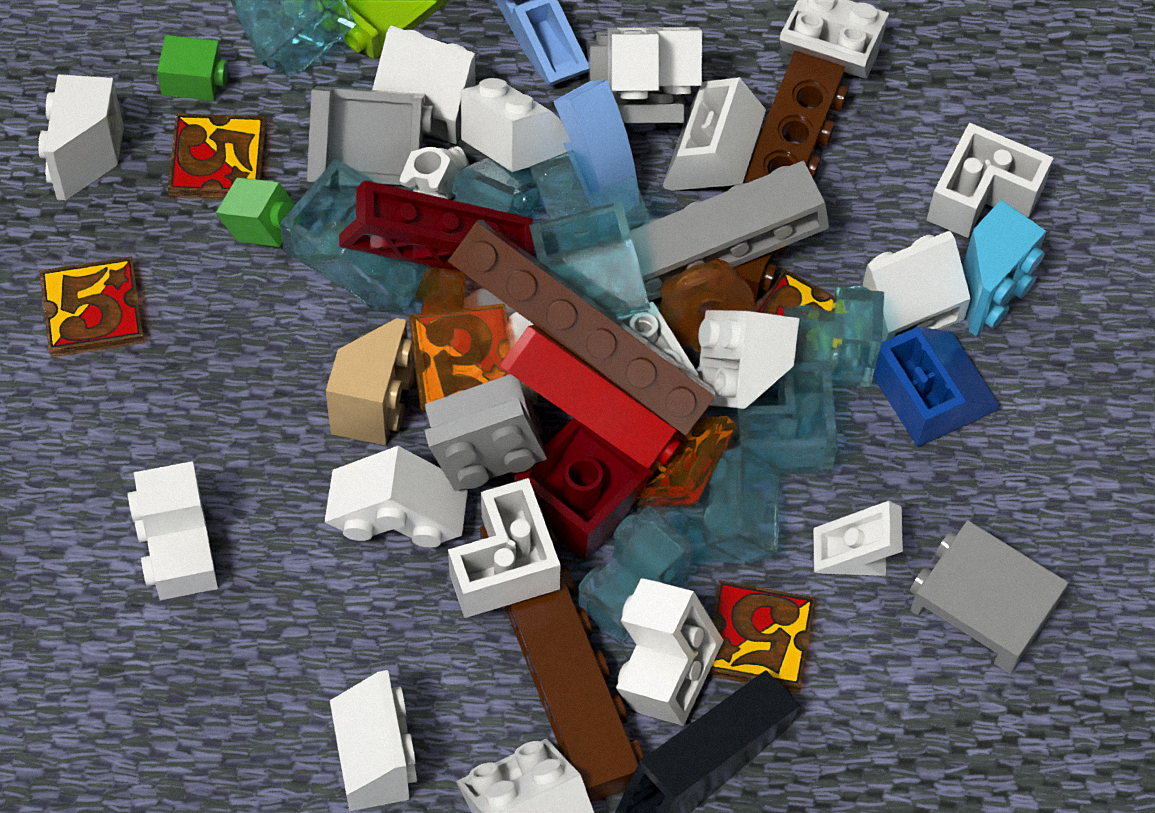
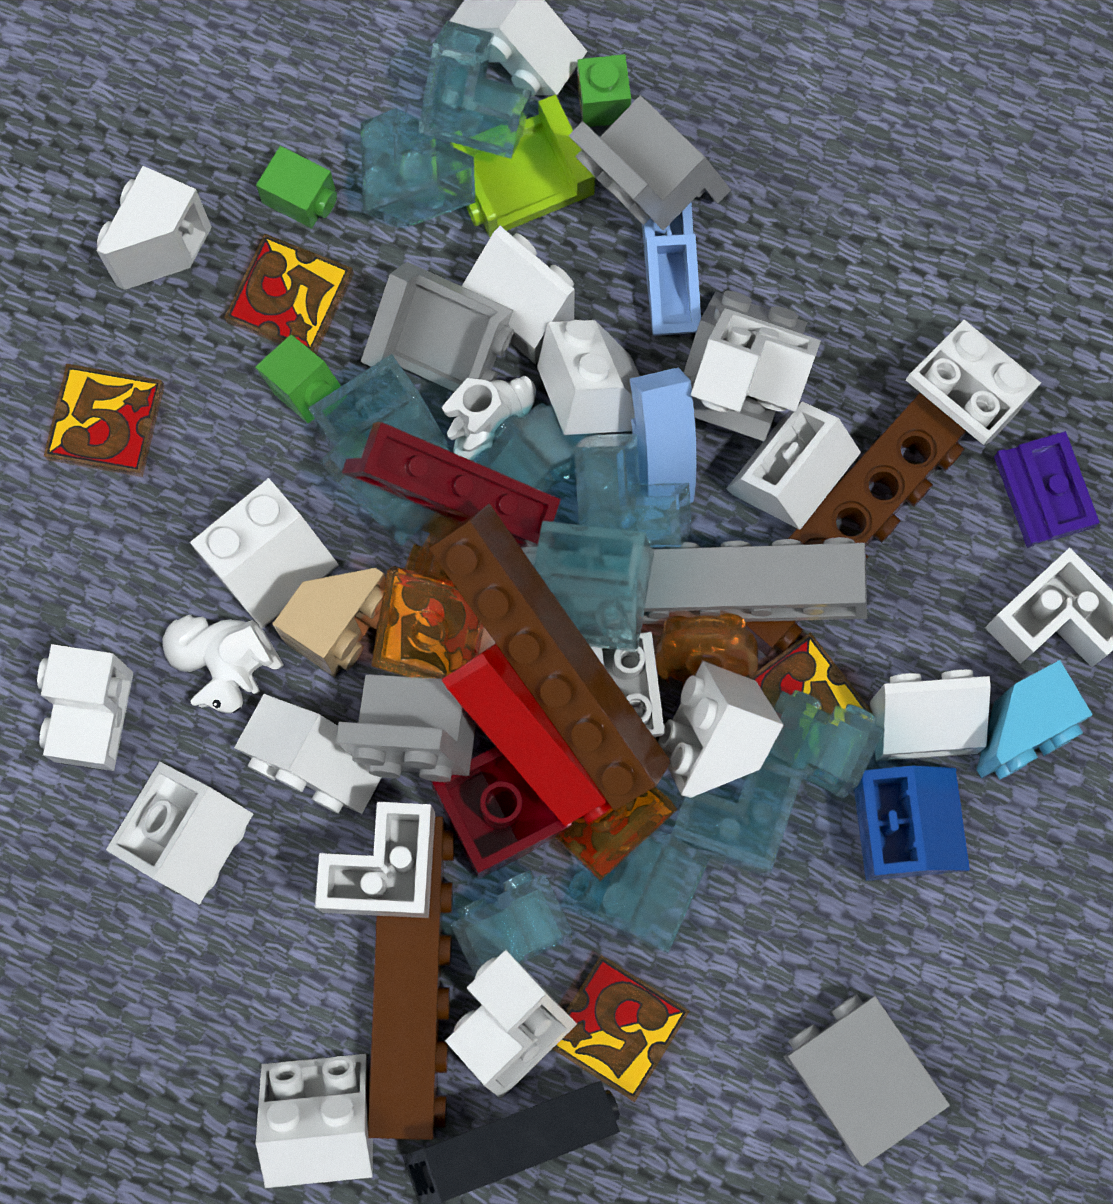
camera: 25 degrees right, 15 degrees up
(281, 360) = (263, 552): none -> white slope
(286, 451) = (228, 650): none -> white animal
(303, 609) = (180, 832): none -> white slope
(373, 743) = (188, 1007): white slope -> none
(859, 541) = (756, 970): white slope -> none
(928, 98) = (1046, 489): none -> dark purple plate

